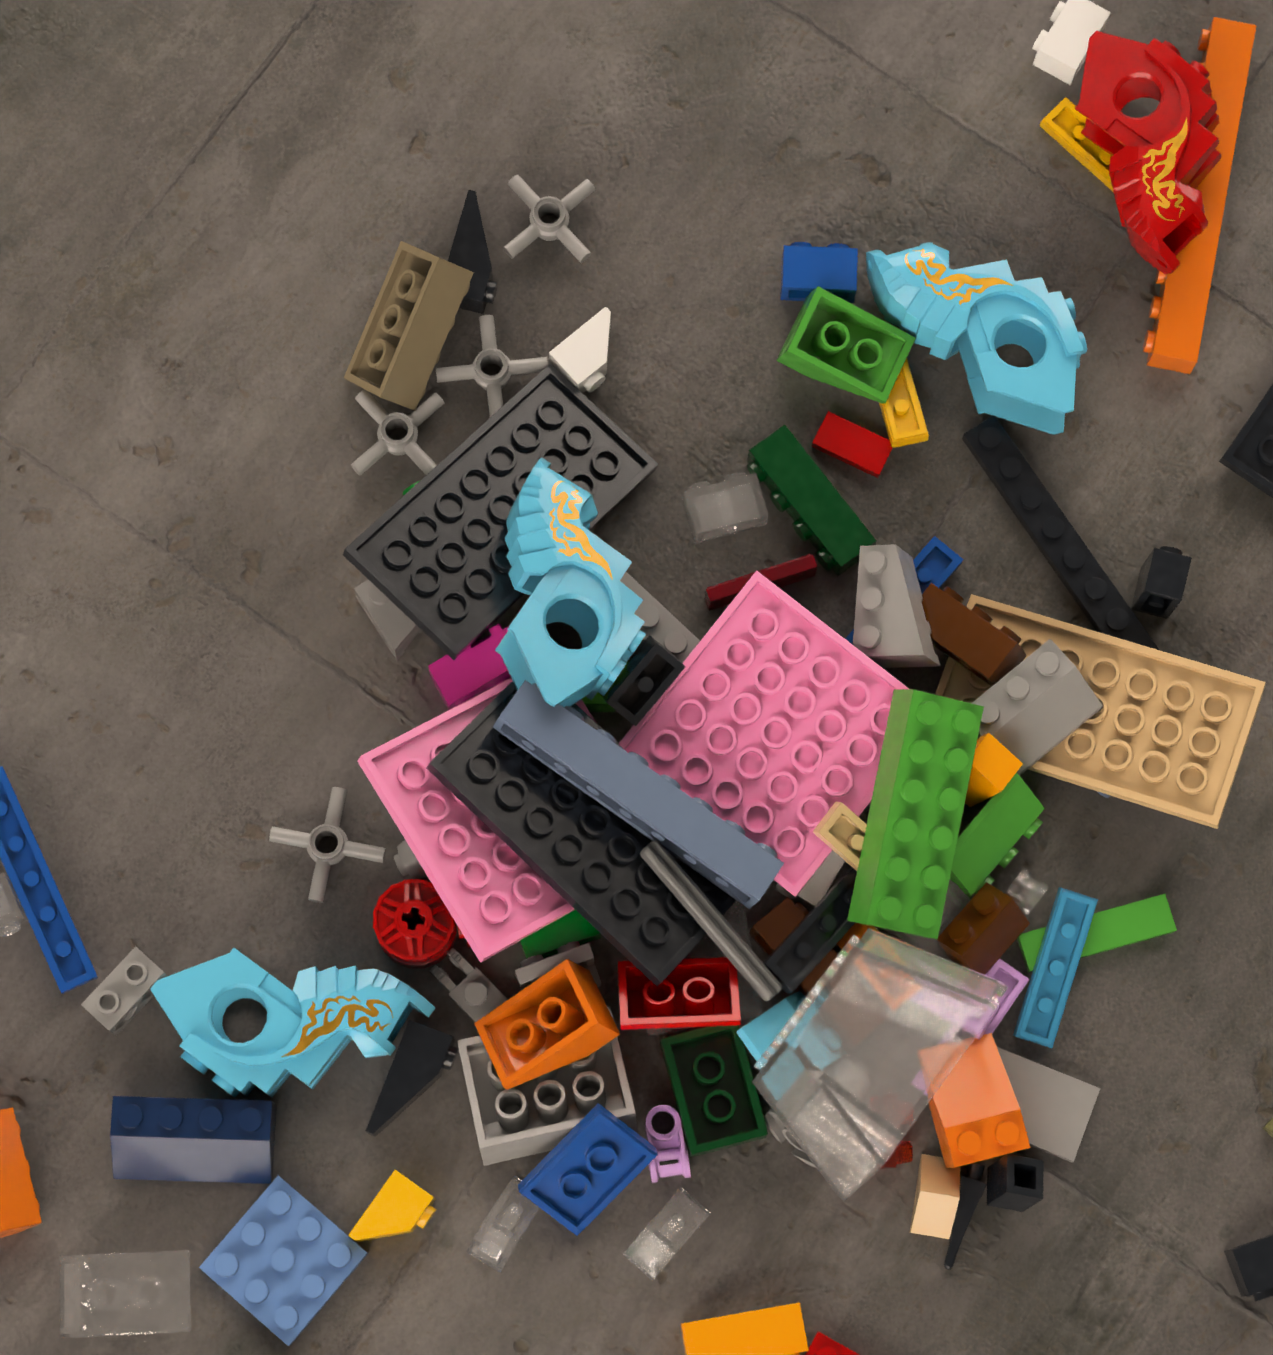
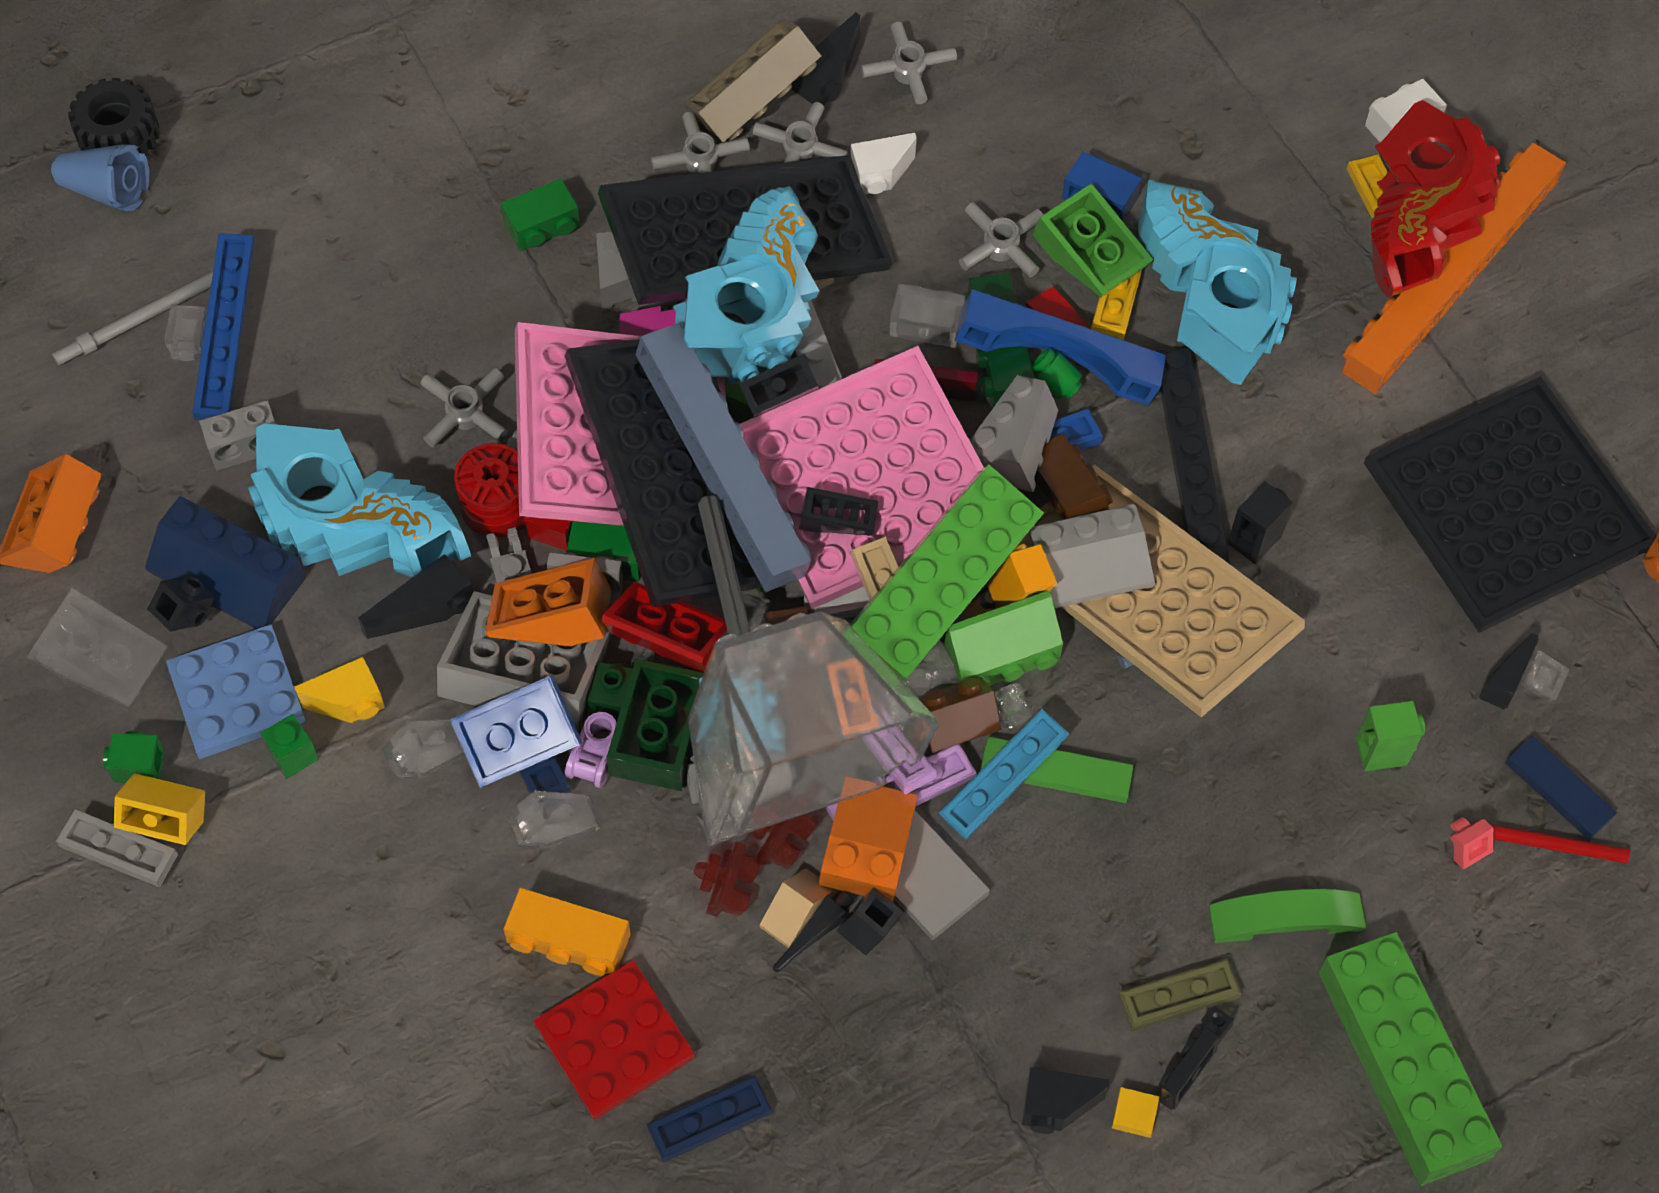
camera: 30 degrees right, 15 degrees down
(180, 1204) = (181, 603): none -> black brick
(277, 587) = (540, 215): none -> green brick
(375, 1294) = (289, 746): none -> green brick
(637, 1200) = (545, 777): none -> dark blue plate
(647, 1073) = (609, 688): none -> dark green brick
(743, 802) = (823, 523): none -> black slope
(747, 396) = (999, 249): none -> light grey bar
(859, 1215) = (724, 894): none -> clear red hips
(885, 512) = (1058, 373): none -> green brick
(948, 474) = (1123, 366): none -> blue arch

